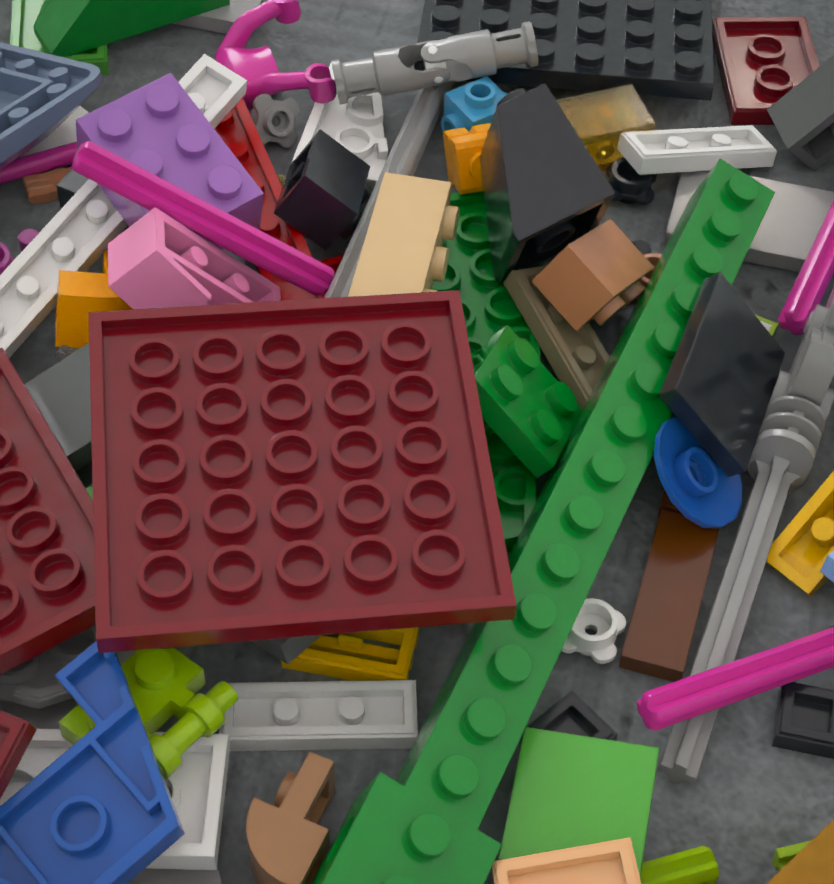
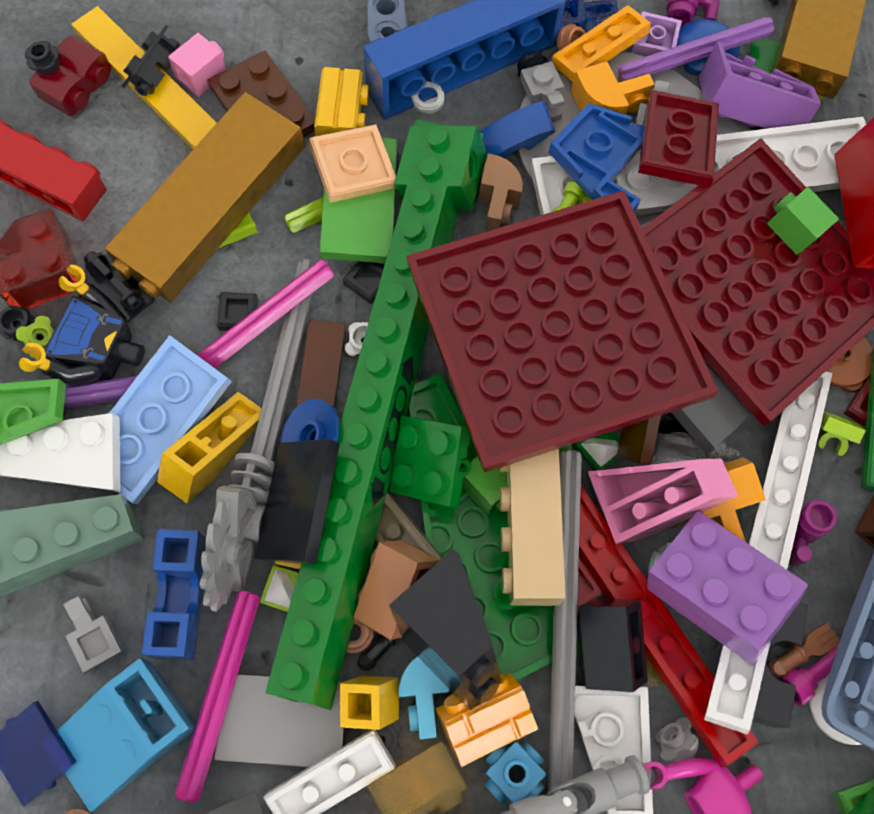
camera: 165 degrees right, 20 degrees up
(202, 218) = (684, 522): dark pink axle -> none
(645, 194) = (369, 702): none -> yellow brick

